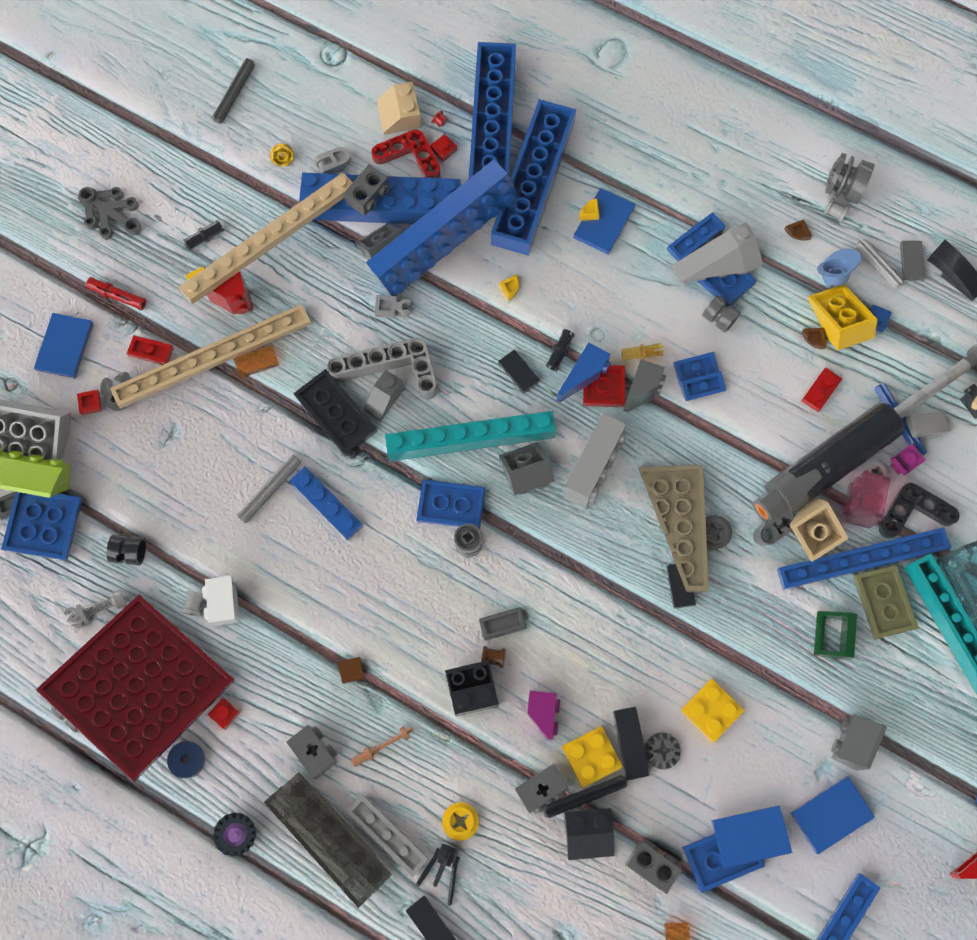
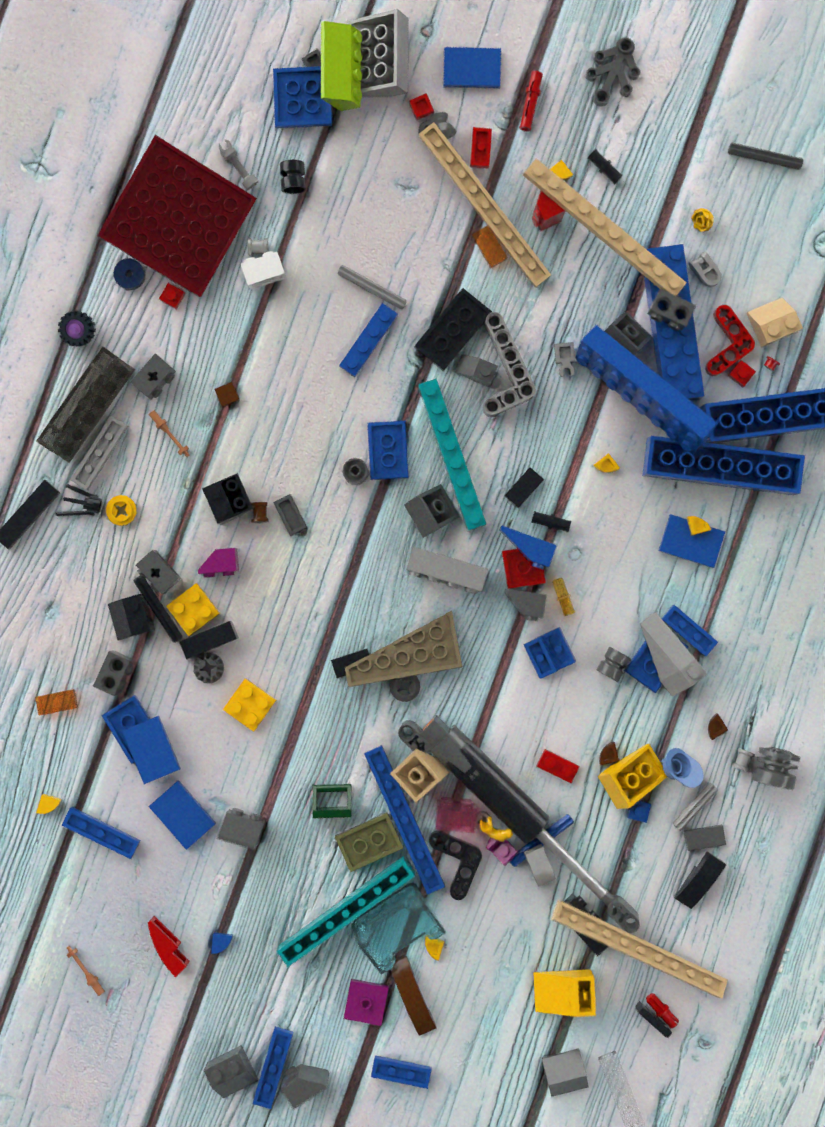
camera: 80 degrees right, 15 degrees up
(893, 456) = (500, 835): none -> yellow piece

